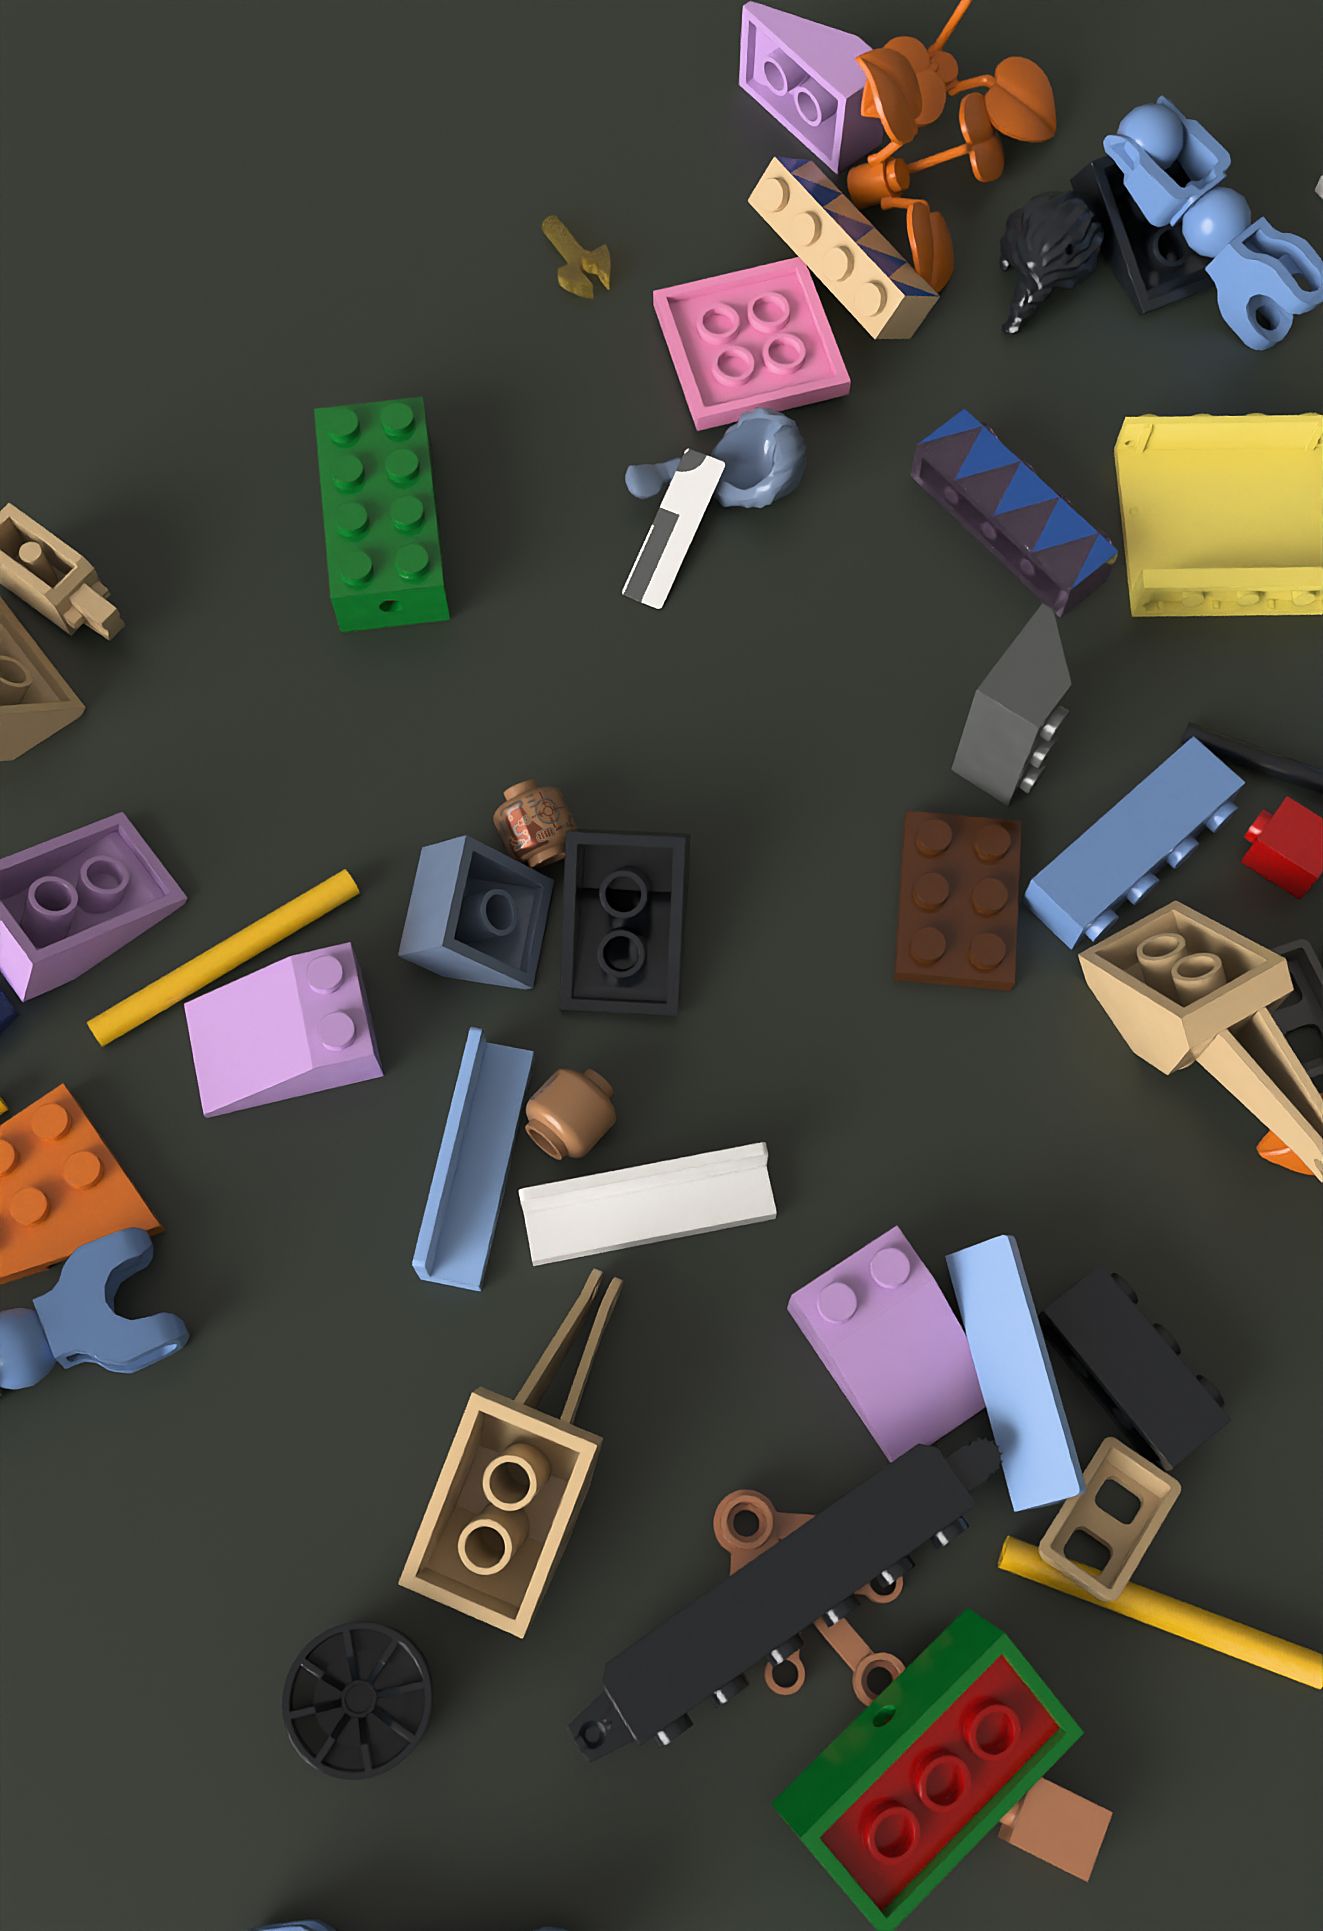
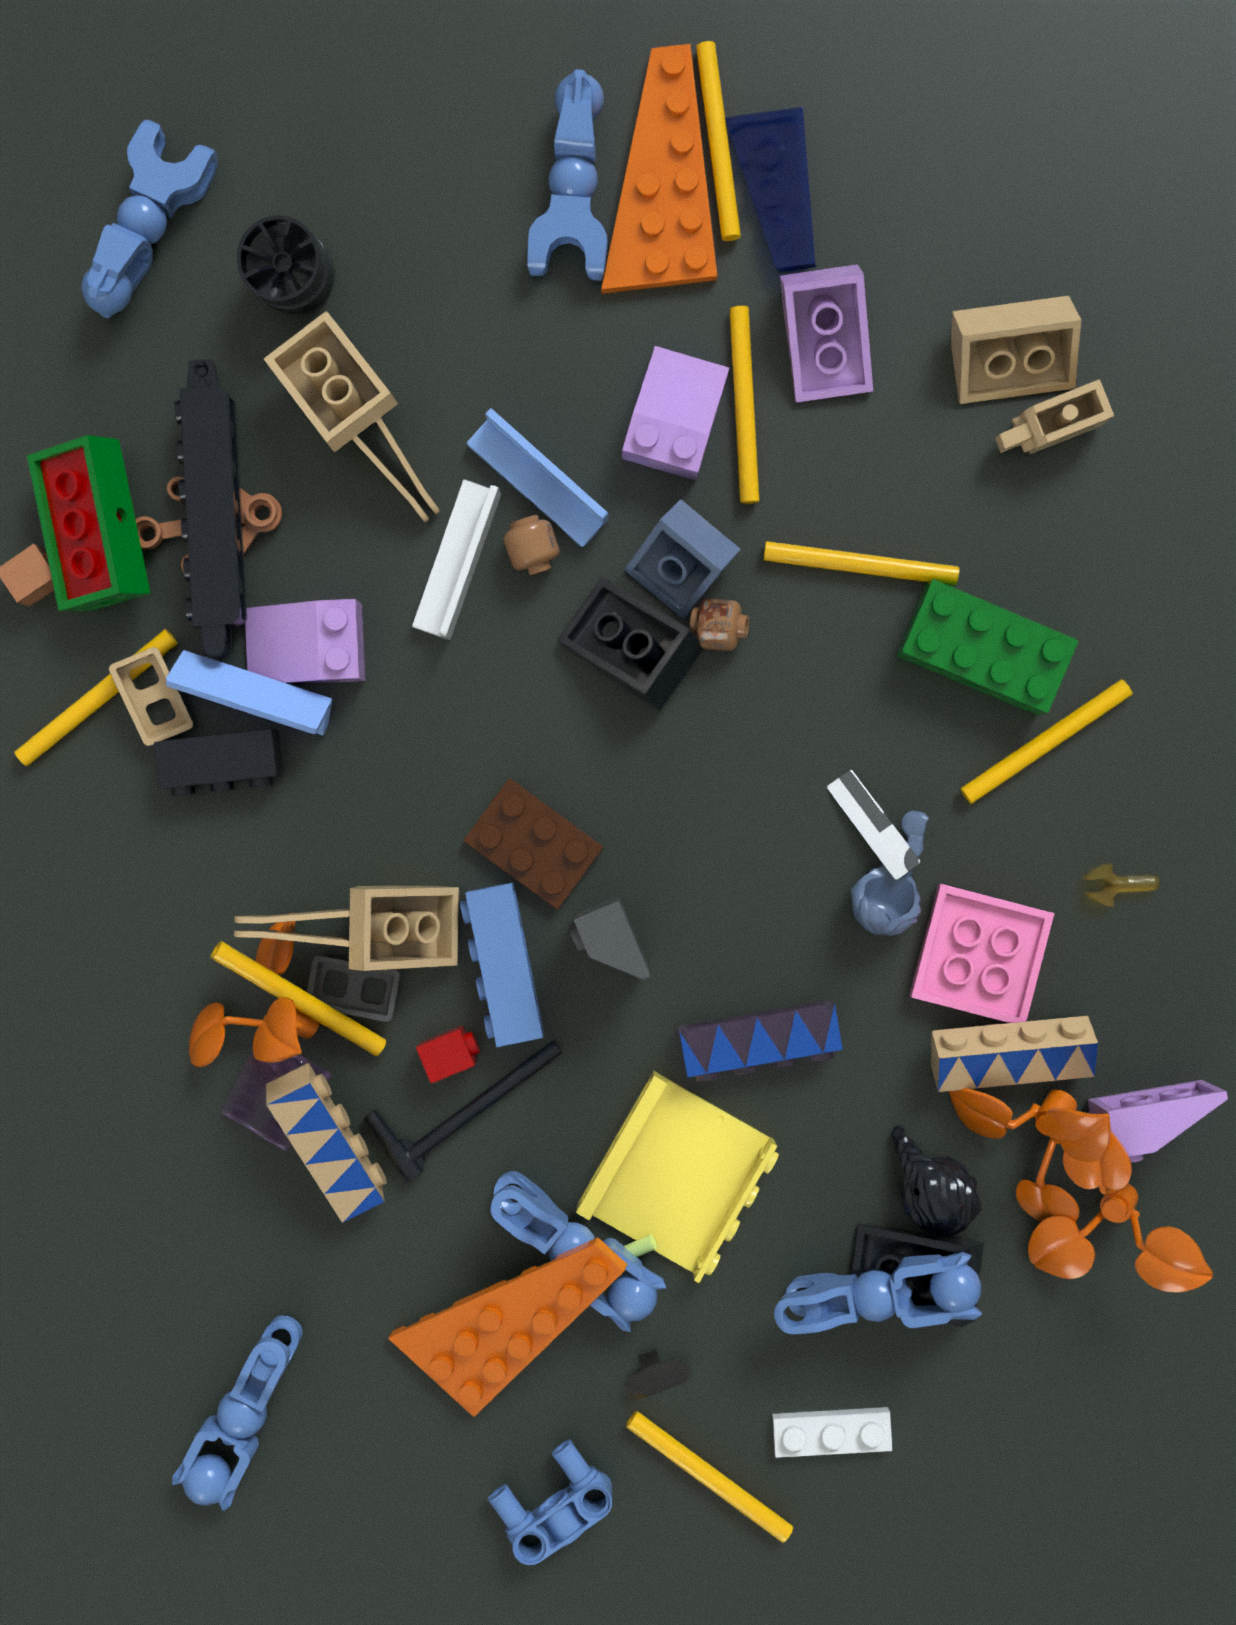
camera: 115 degrees right, 20 degrees up
(358, 714) = (860, 563): none -> yellow piece
(457, 406) = (1046, 741): none -> yellow piece

